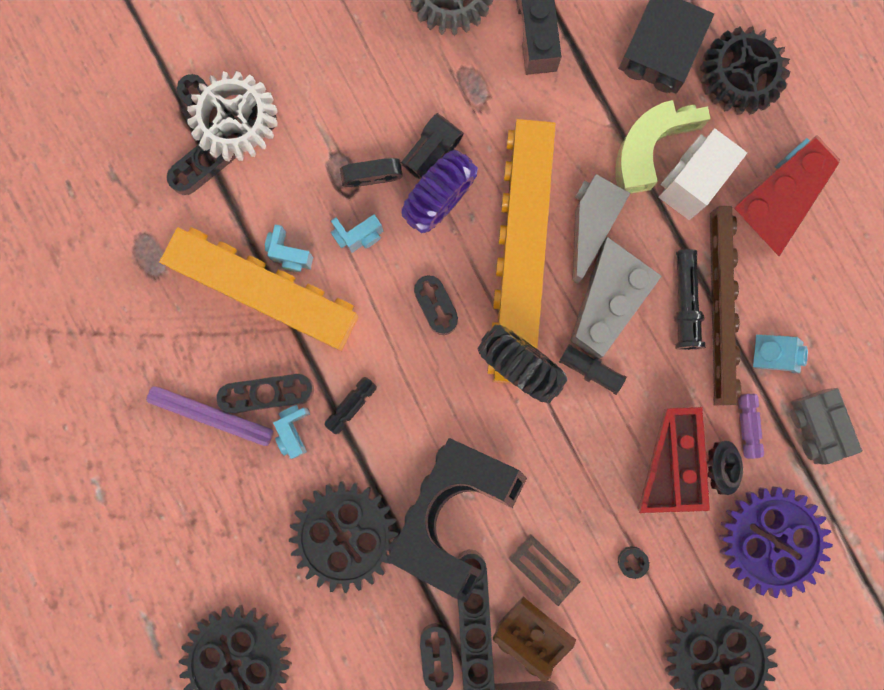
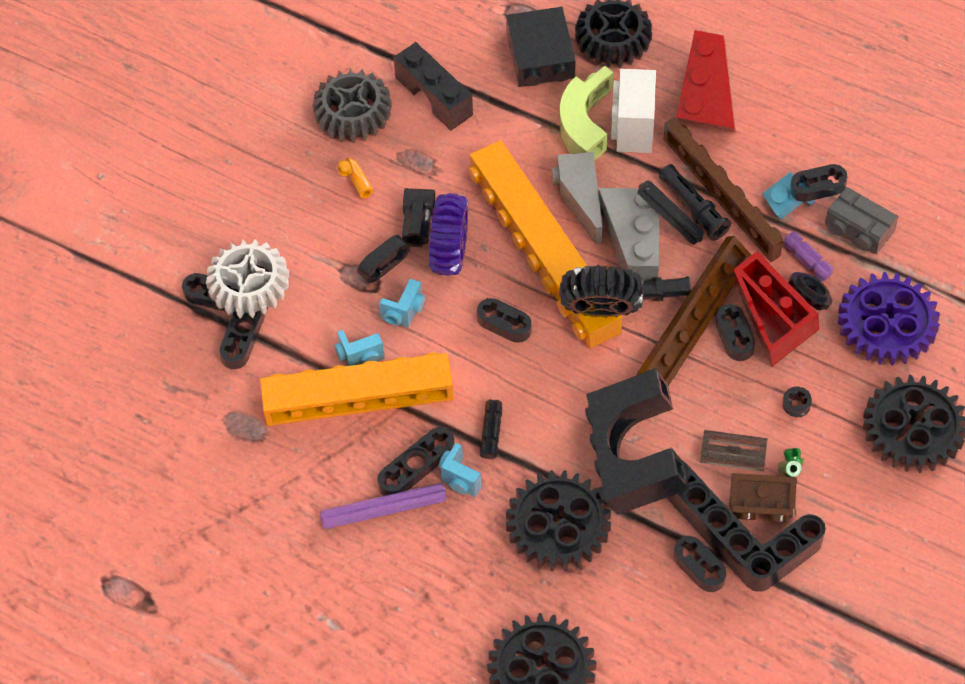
camera: 30 degrees left, 25 degrees down
(407, 70) = (357, 176): none -> light orange arm
(579, 623) = (792, 465): none -> green arm
(606, 418) = (696, 311): none -> reddish brown plate
(637, 459) = (740, 330): none -> black beam
(653, 306) = (670, 212): none -> black axle
(816, 363) = (818, 183): none -> black beam

